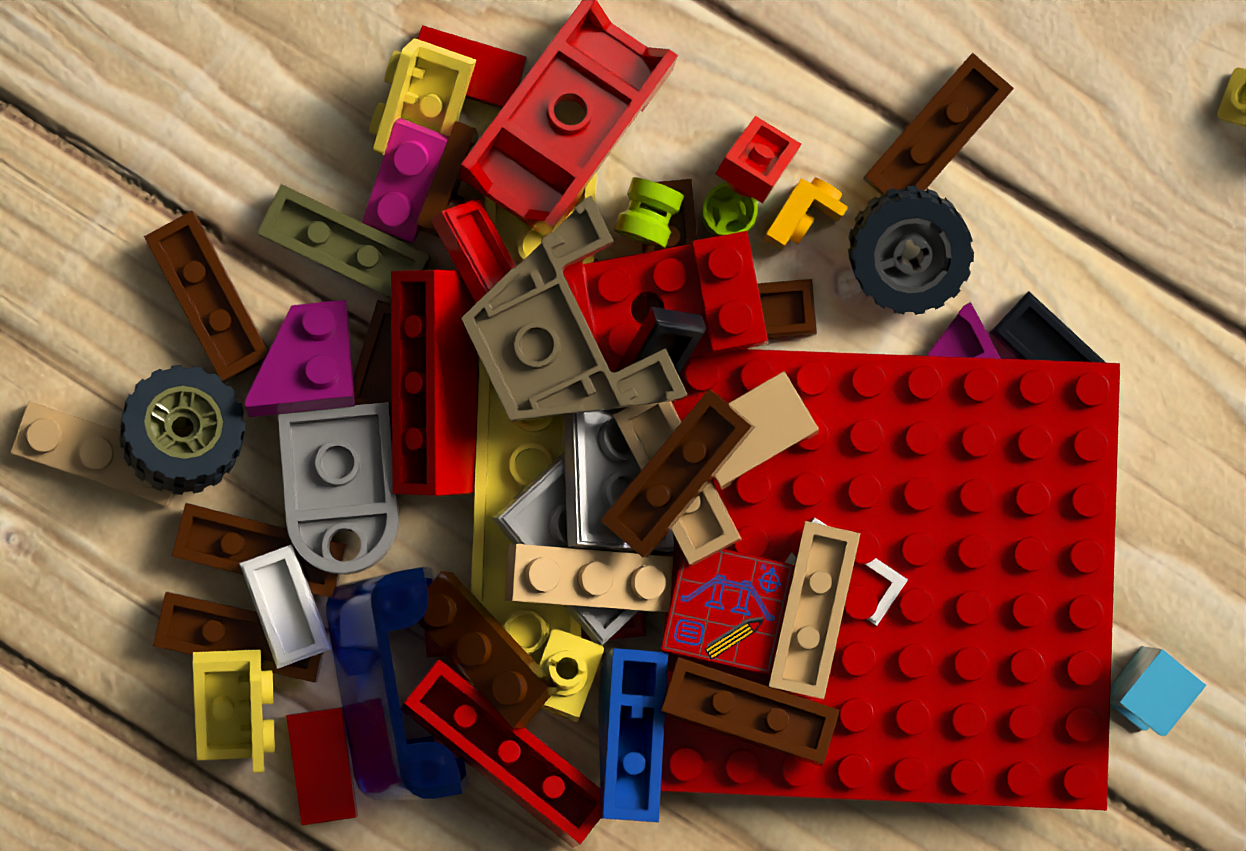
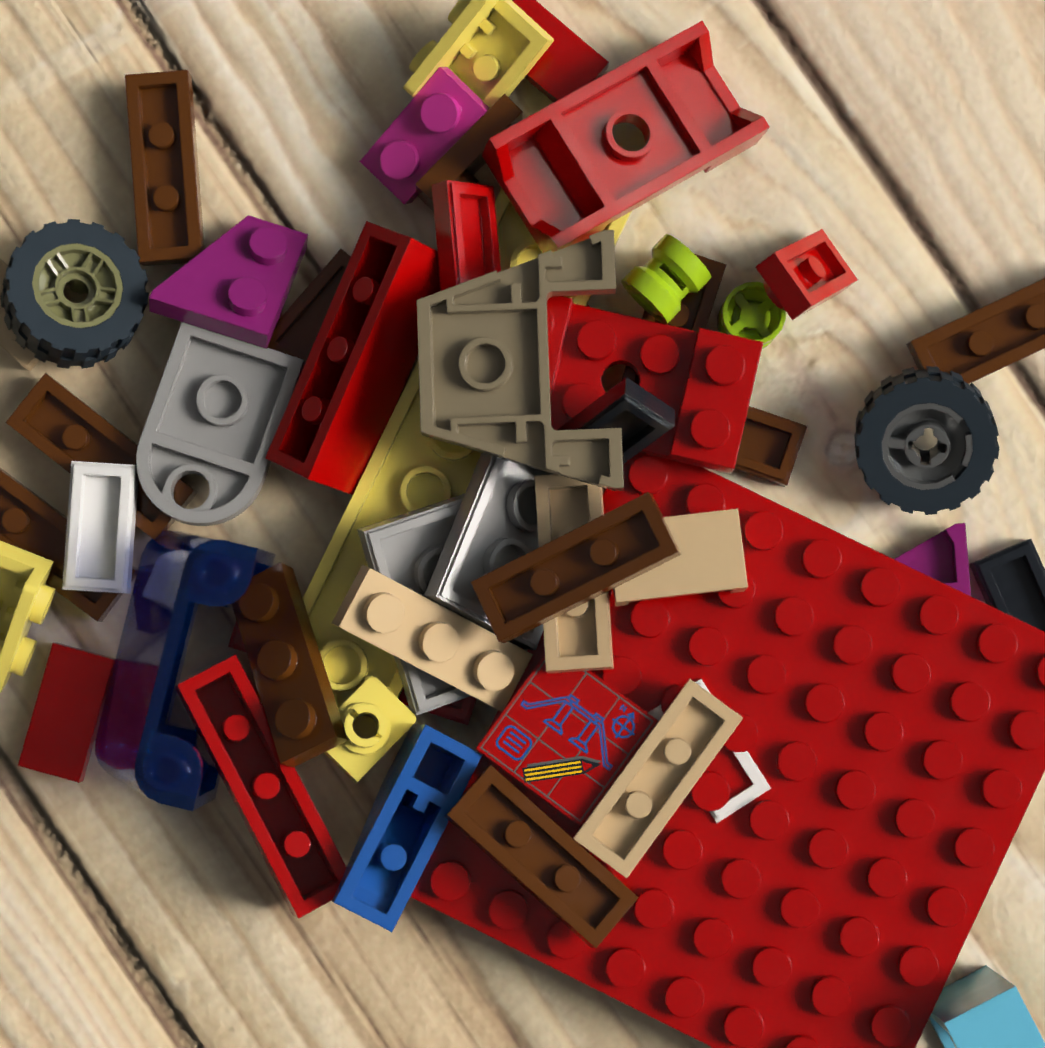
camera: 20 degrees right, 0 degrees up
(338, 241) = (325, 167): olive plate -> none
(794, 219) = (816, 353): yellow bracket -> none

